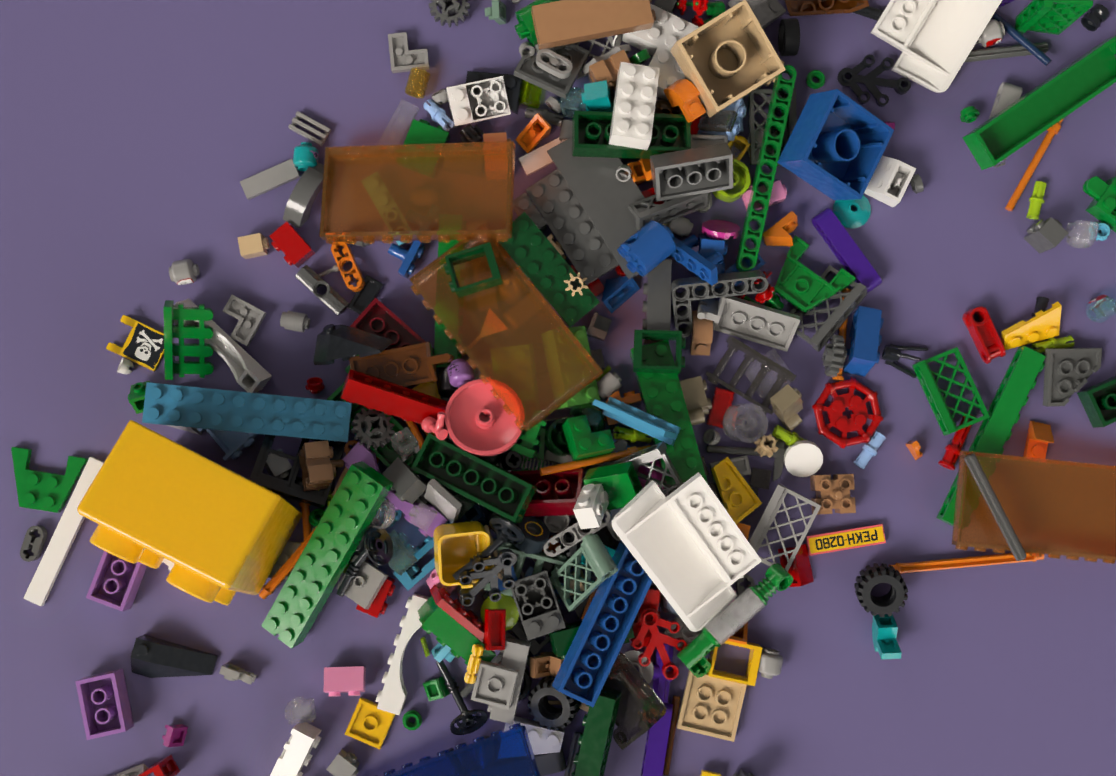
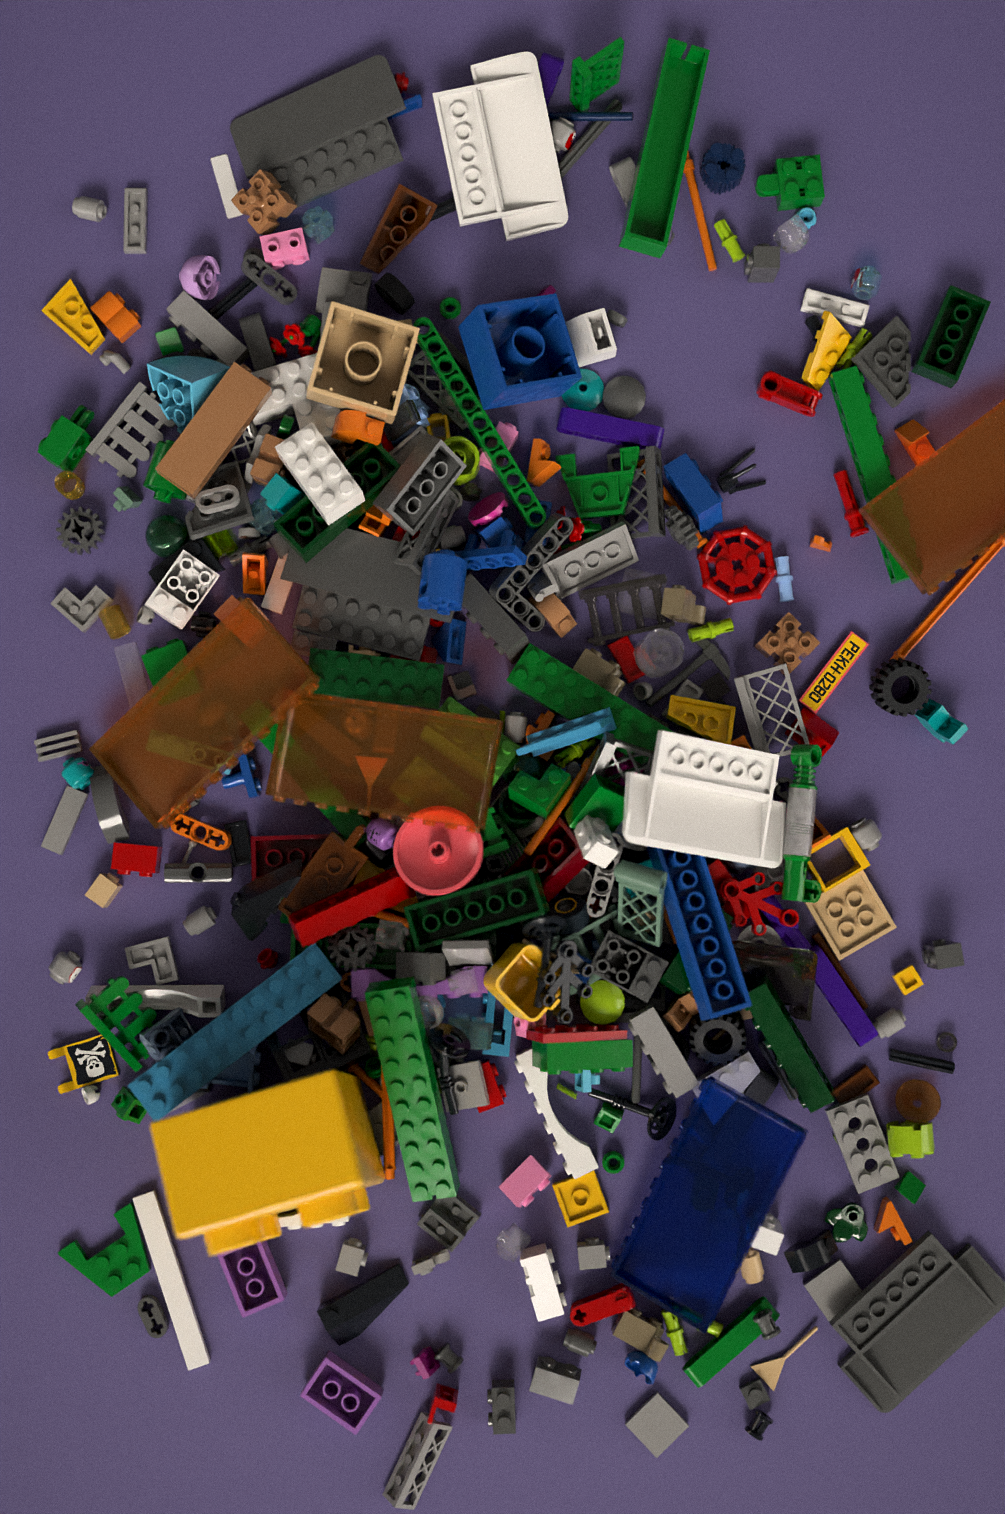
camera: 35 degrees left, 0 degrees up
(191, 624) = (352, 1257): none -> light grey brick
(192, 745) = (448, 1358): none -> dark grey bush
(207, 374) = (167, 1034): none -> sand blue slope
(274, 659) = (449, 1220): none -> dark grey slope
(431, 425) = (399, 899): coral piece -> none
(438, 115) = (158, 632): light blue pin -> none
(468, 255) = (296, 729): dark green window -> none
(473, 664) = (620, 1064): yellow axle -> none
(495, 629) = (611, 1019): red tile -> none
(495, 684) = (654, 1065): light grey tile -> none
(500, 57) = (166, 535): none -> clear green cylinder
(523, 51) = (181, 511): light grey hinge -> none
(578, 288) = (417, 670): tan gear -> none
(621, 173) = (363, 537): light grey hinge -> none
(658, 335) = (519, 646): dark green window -> none
(719, 209) = (471, 492): none -> clear smoke plate
(766, 446) = (695, 655): tan gear -> none
(803, 458) = (735, 638): white tile -> none
(871, 81) = (497, 266): black plant -> none
(874, 238) = (624, 397): none -> dark grey dish
(937, 401) = (796, 484): green fence -> none
(969, 114) = (606, 219): green plate -> none
(995, 507) = (929, 531): dark grey axle -> none
(1070, 312) = (843, 309): none -> white tile
(1076, 149) = (722, 157): none -> dark blue brick
(1093, 20) = (636, 41): black wheel -> none

